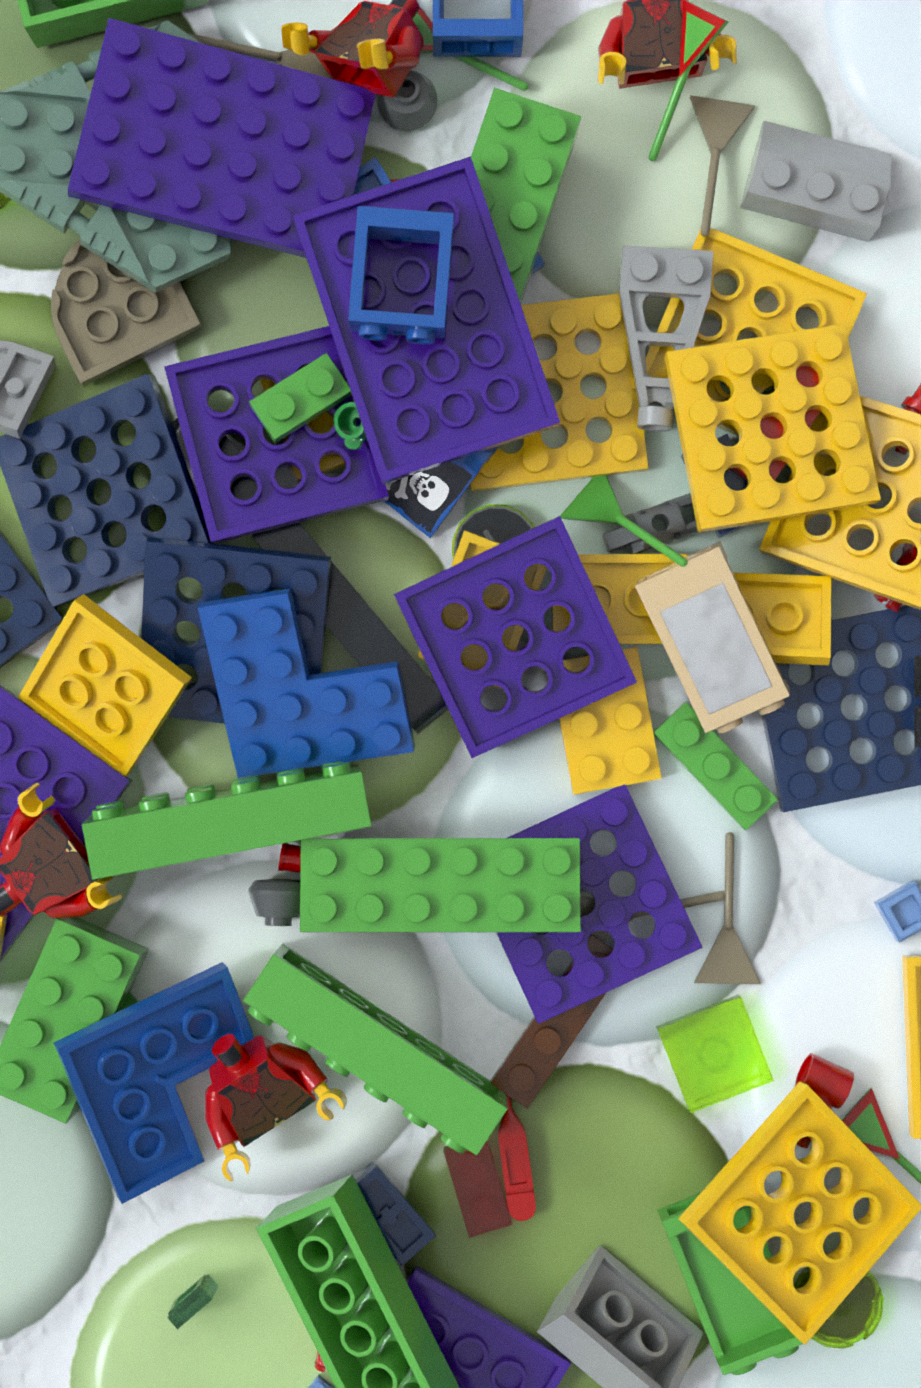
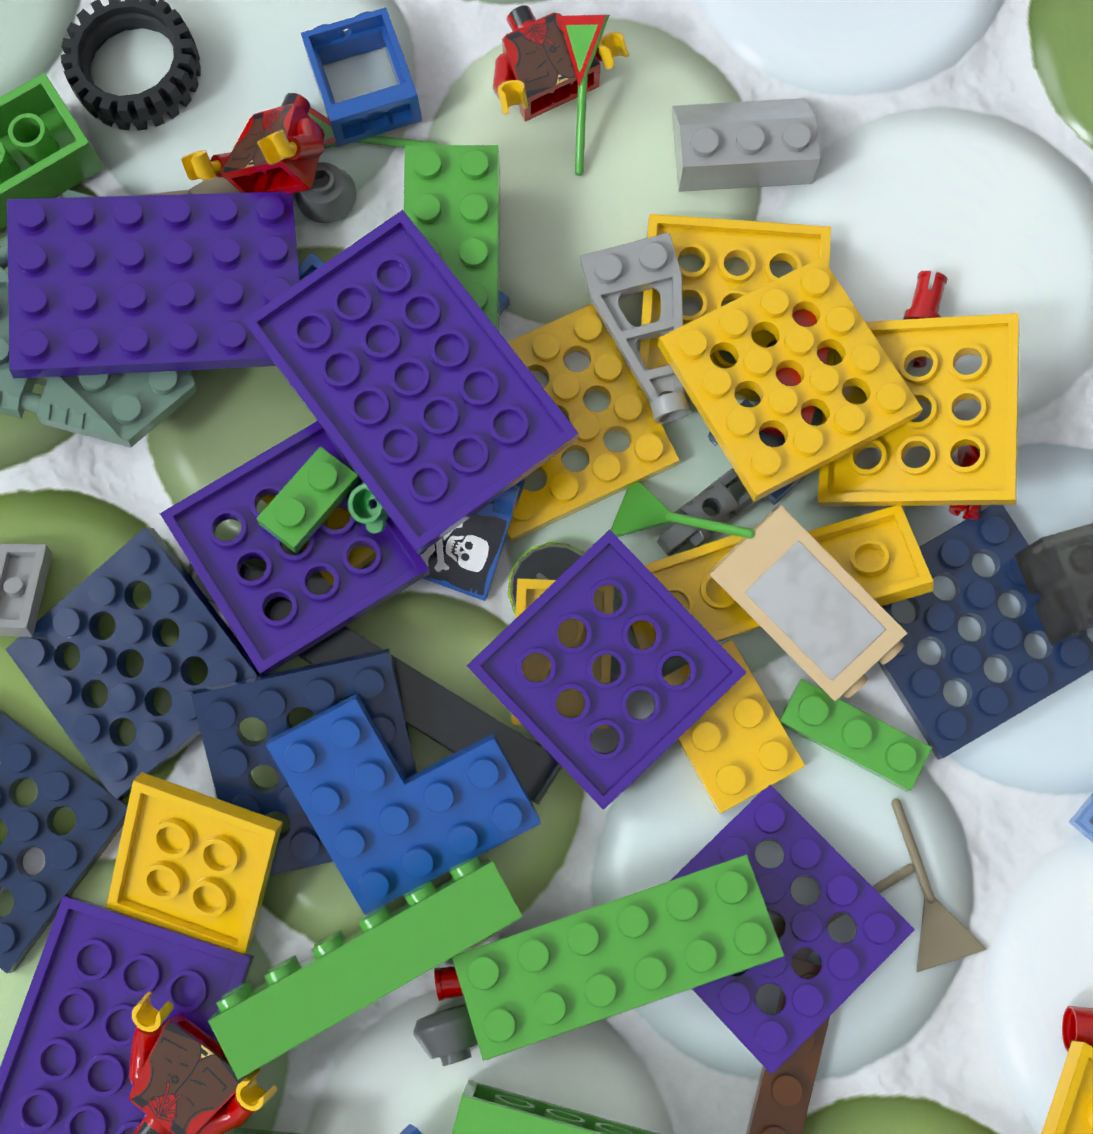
camera: 15 degrees left, 10 degrees down
(111, 318) = (94, 487): dark tan plate -> none
(405, 227) = (359, 292): blue window -> none
(714, 1053) = (967, 1042): clear neon green tile -> none
(719, 124) = (632, 123): dark tan piece -> none

